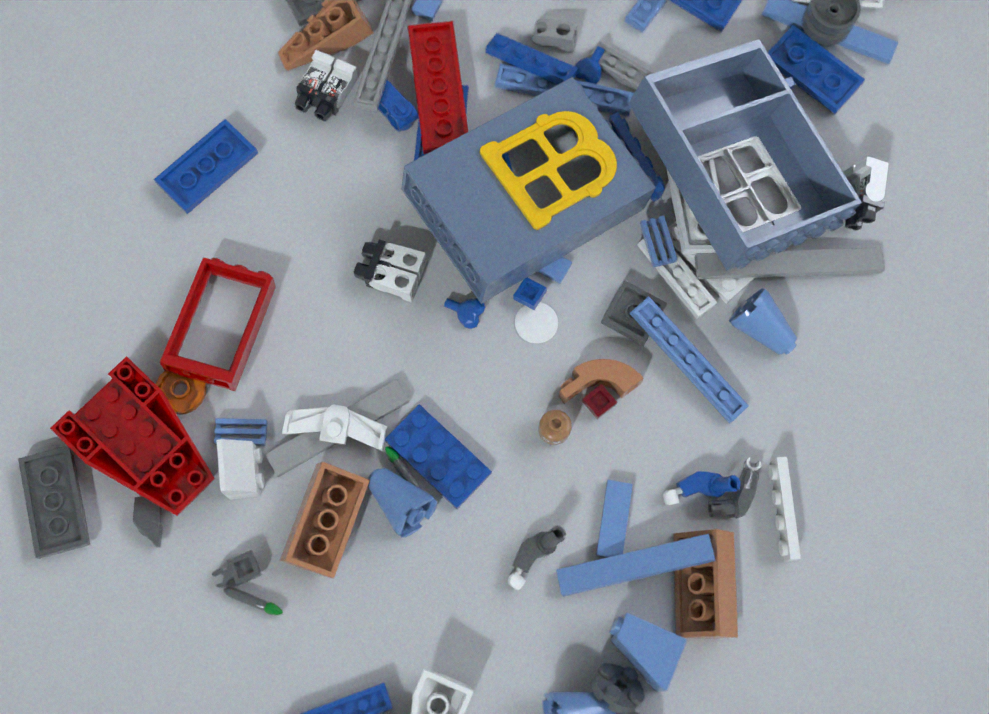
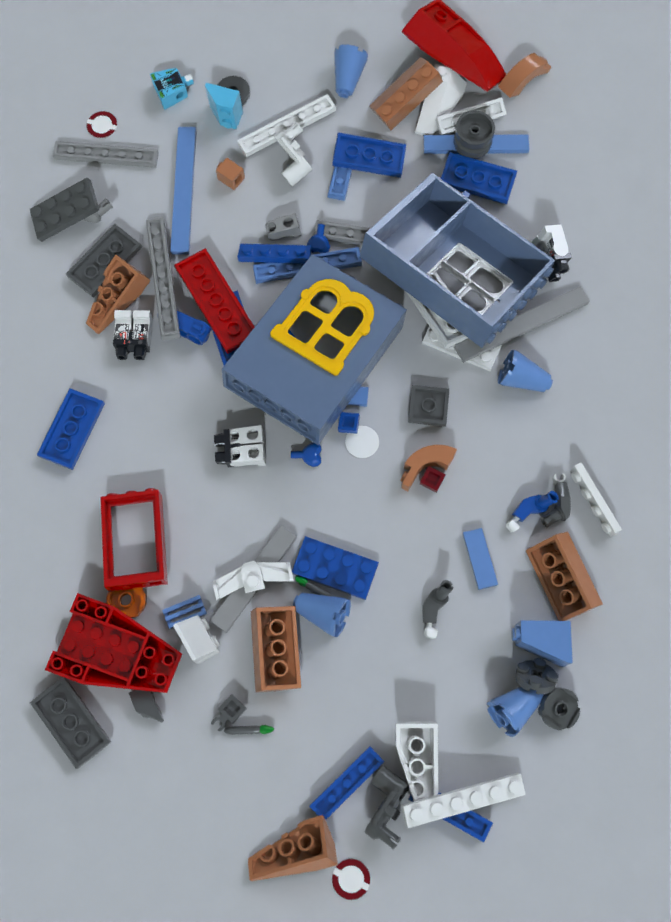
camera: 15 degrees left, 0 degrees up
(555, 427) = (409, 511): medium nougat head -> none
(622, 130) = (361, 276): blue plate -> none
(635, 565) = (510, 584): medium blue tile -> none
(667, 238) = (414, 335): medium blue tile -> none
(682, 281) = (446, 365): white plate -> none
(689, 359) = (482, 422): medium blue tile -> none

